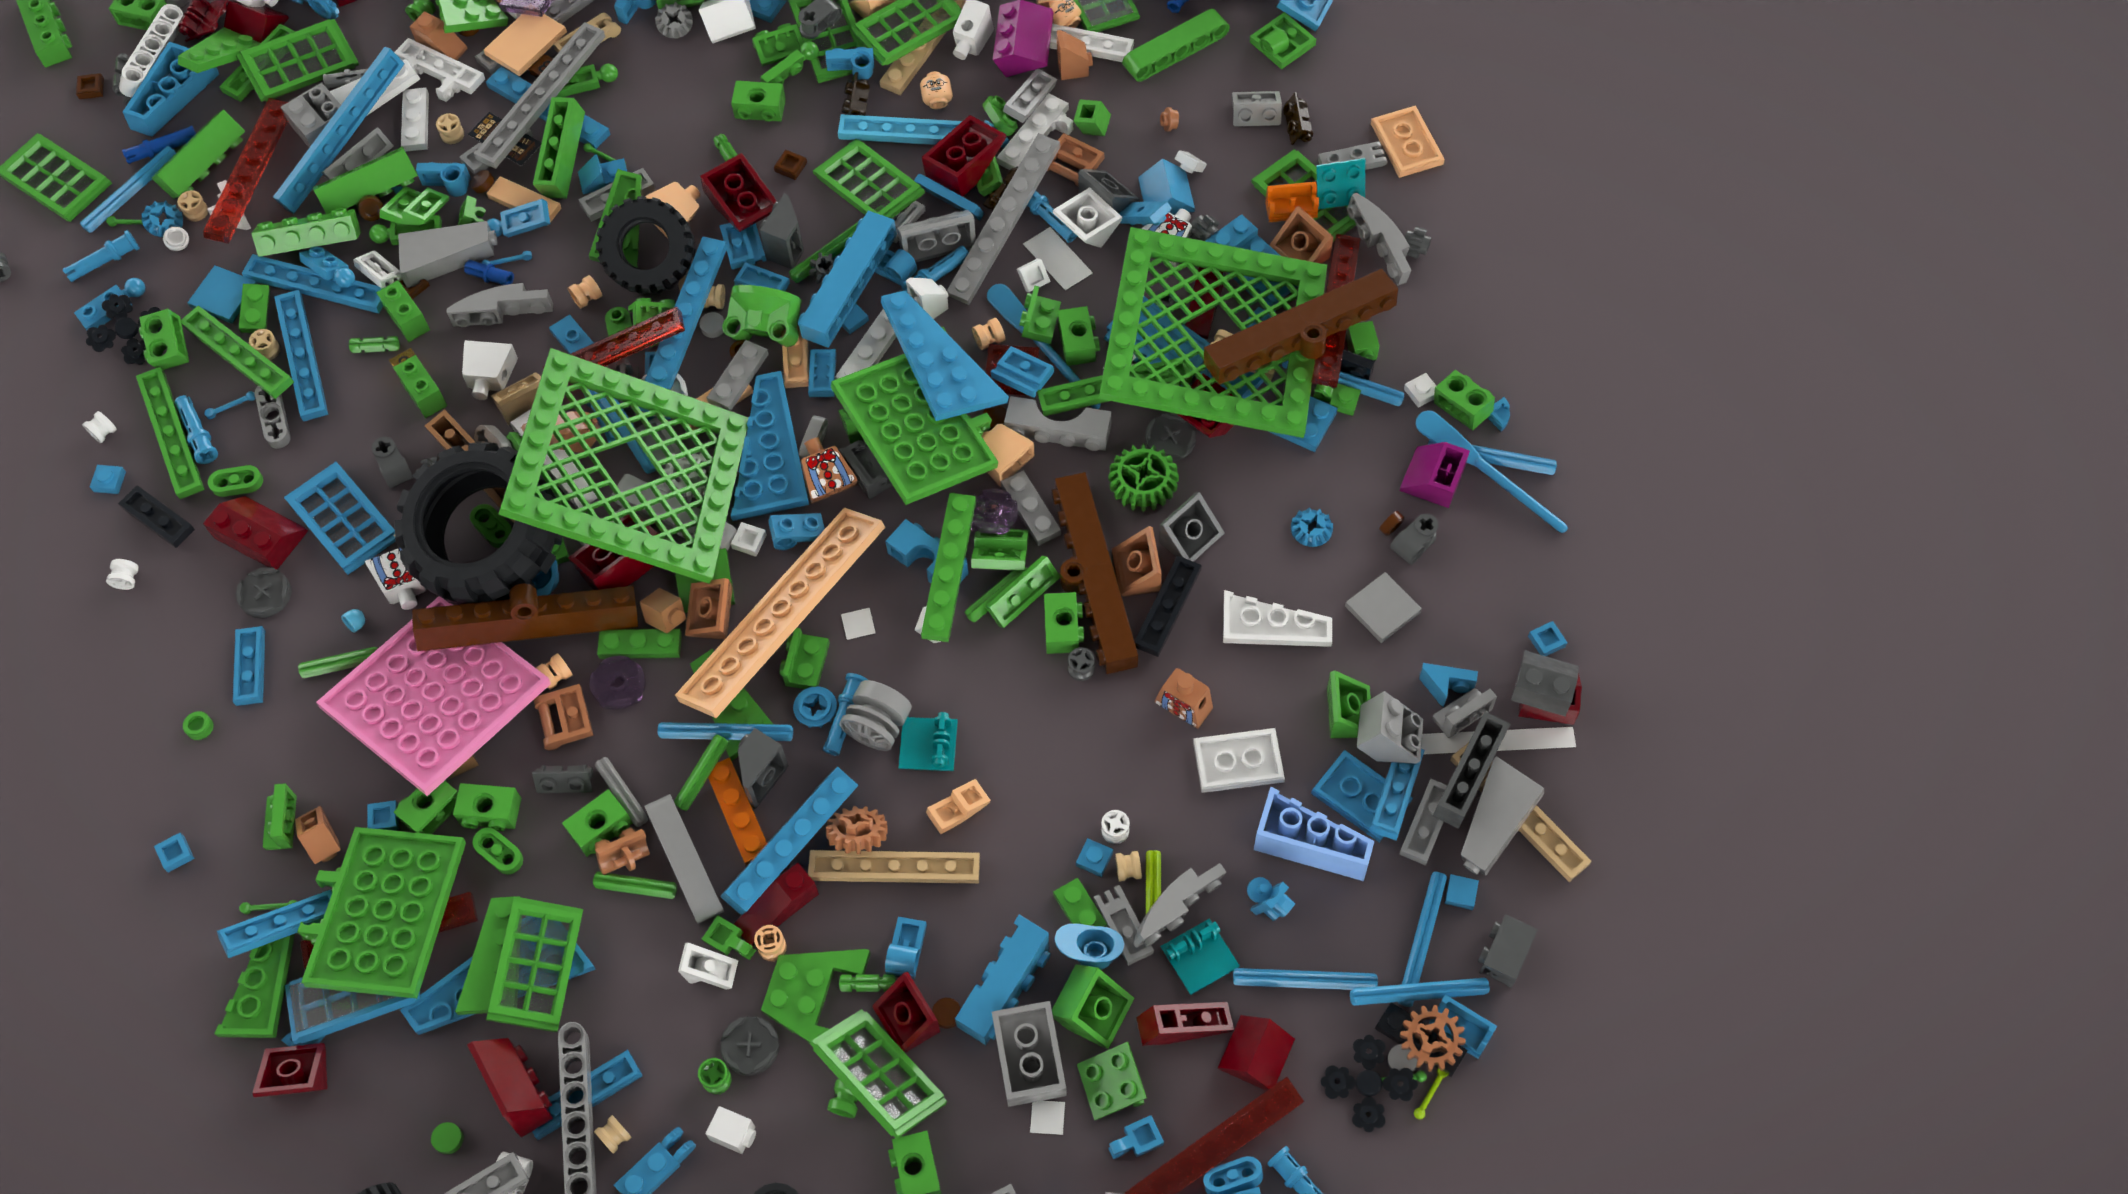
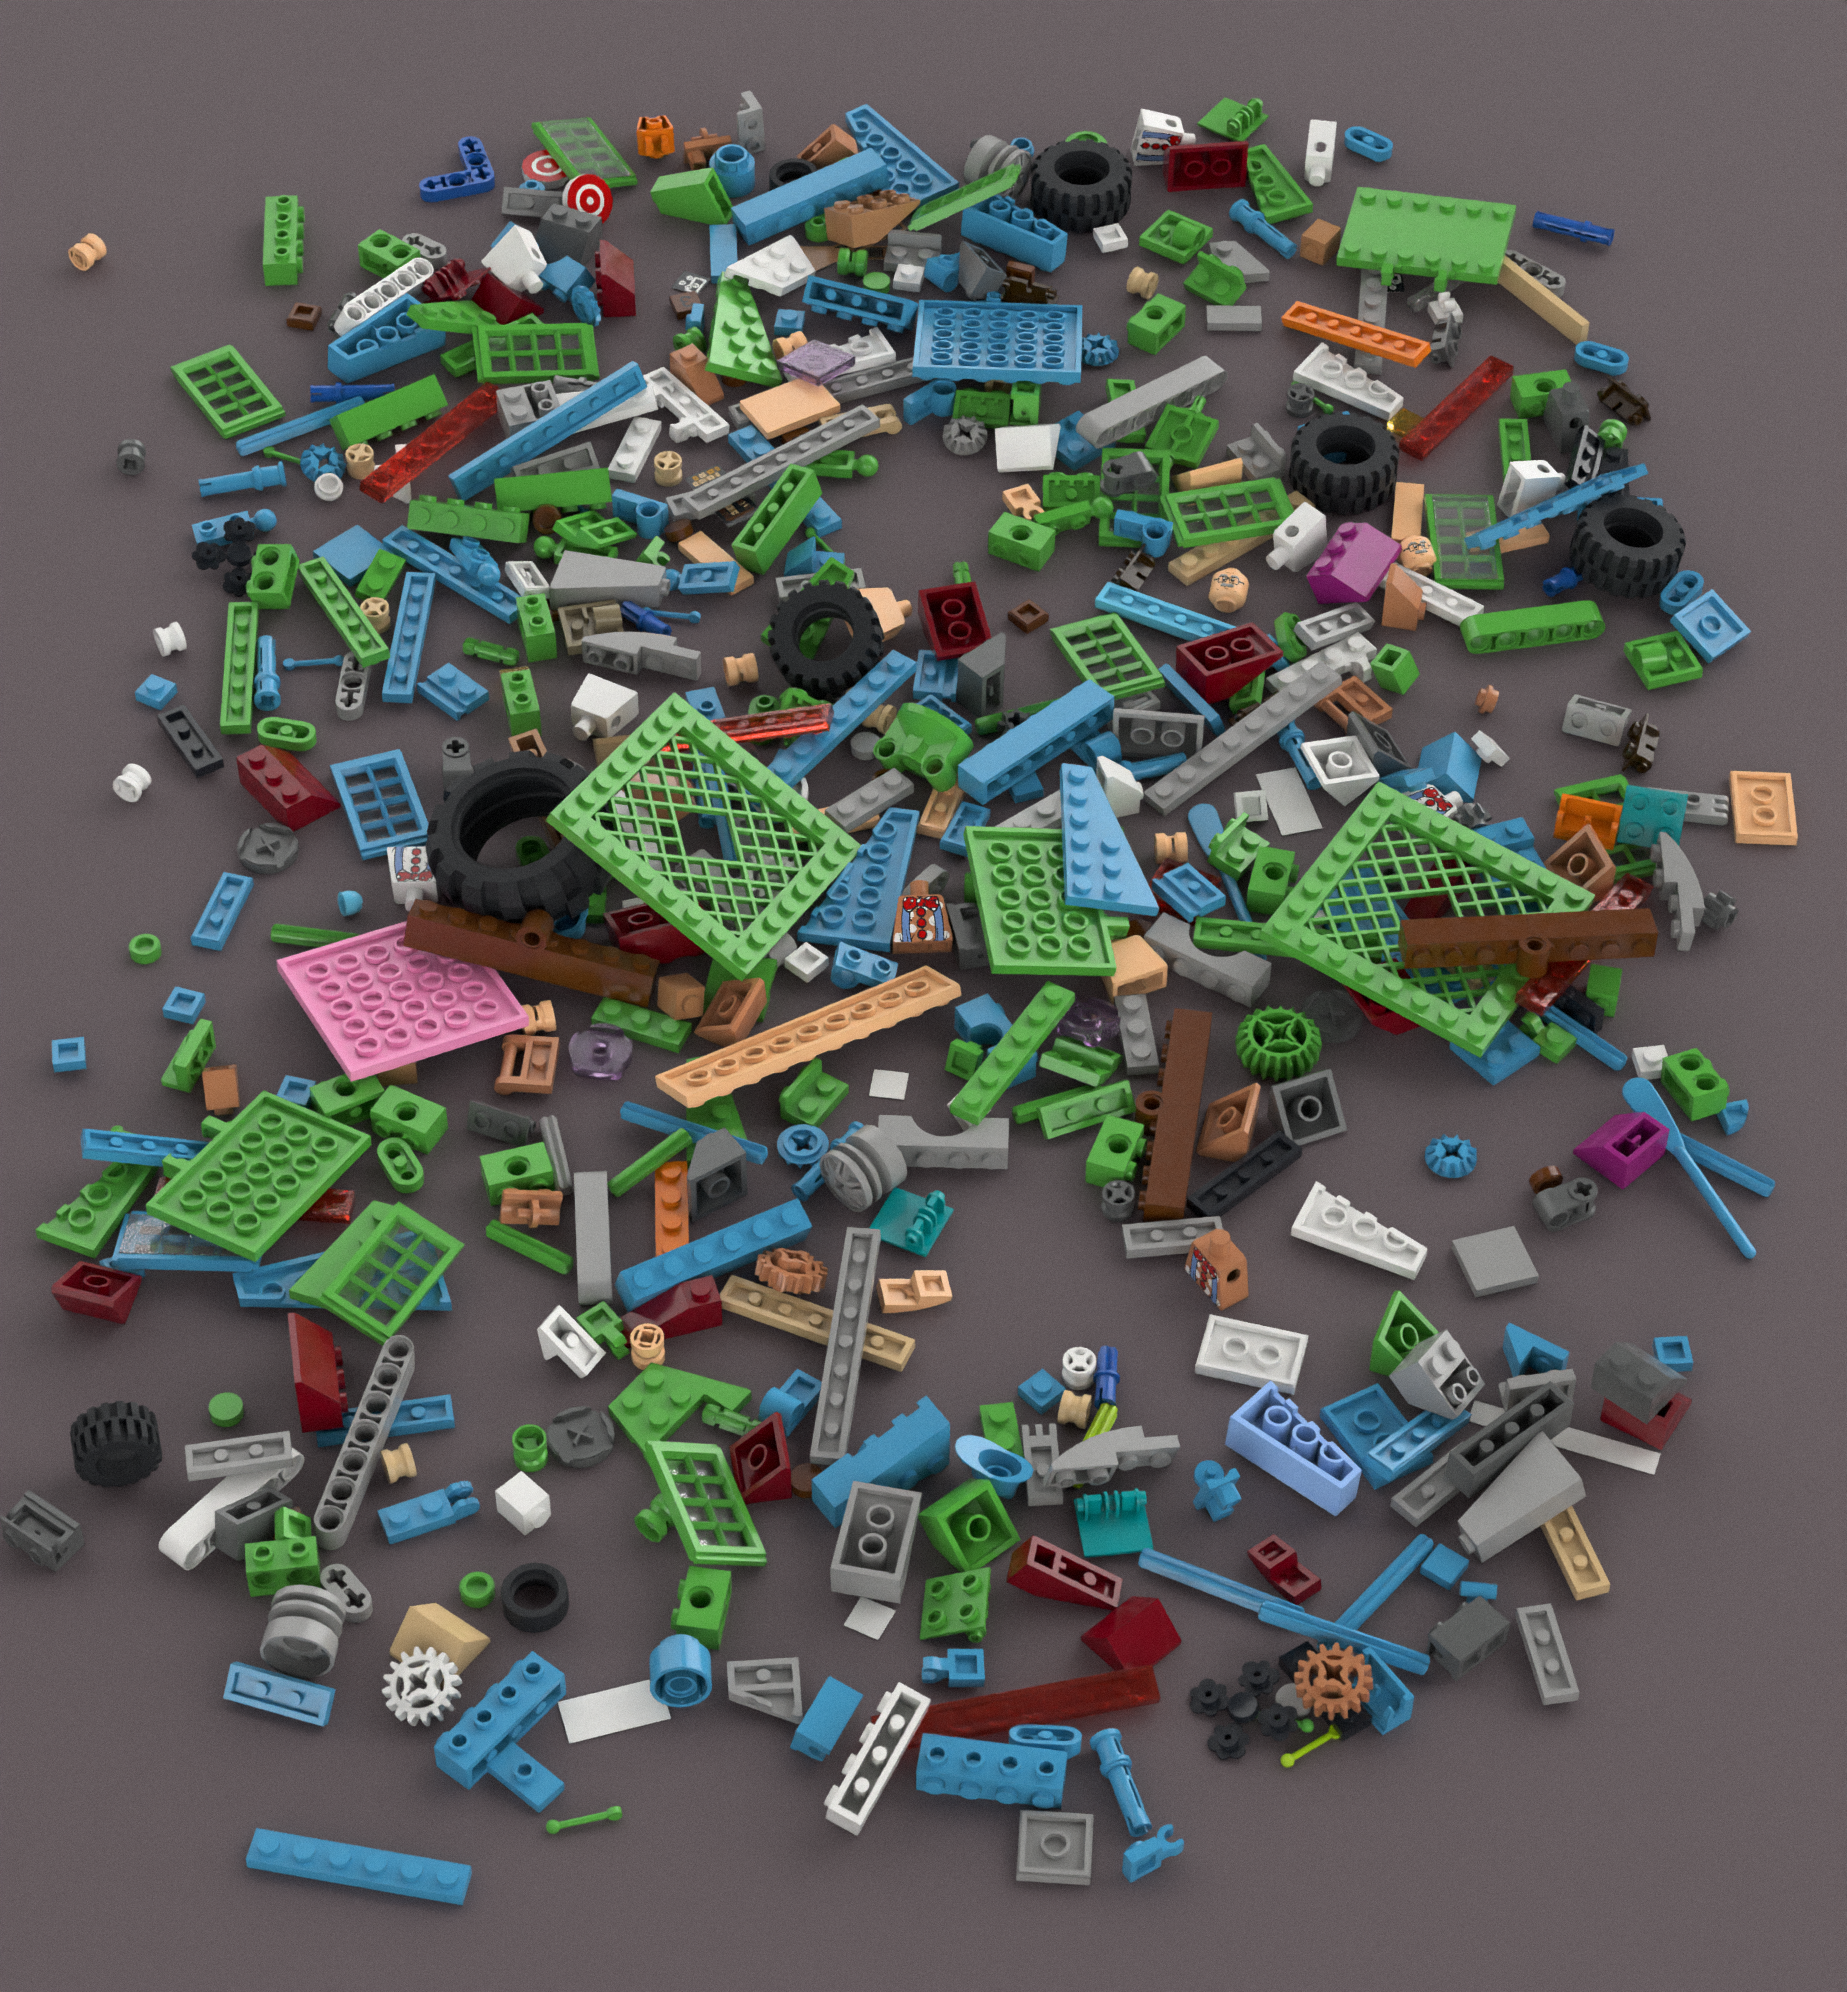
camera: 20 degrees right, 15 degrees down
(253, 768) = (184, 1005): none -> dark azure plate
(358, 391) = (453, 691): none -> dark azure plate
(444, 290) = (588, 620): none -> dark tan plate
(744, 65) = (1022, 501): none -> light nougat plate
(910, 581) = (964, 1058): none -> bright green tile
(930, 885) = (845, 1346): none -> light grey plate
(956, 656) = (976, 1147): none -> light grey arch
(1135, 680) = (1165, 1236): none -> light grey plate
(1139, 826) = (1106, 1376): none -> blue axle
(1344, 944) = (1283, 1571): none -> dark red slope
(1497, 905) = (1475, 1589): none -> dark azure plate
(1570, 940) = (1547, 1654): none -> light grey plate

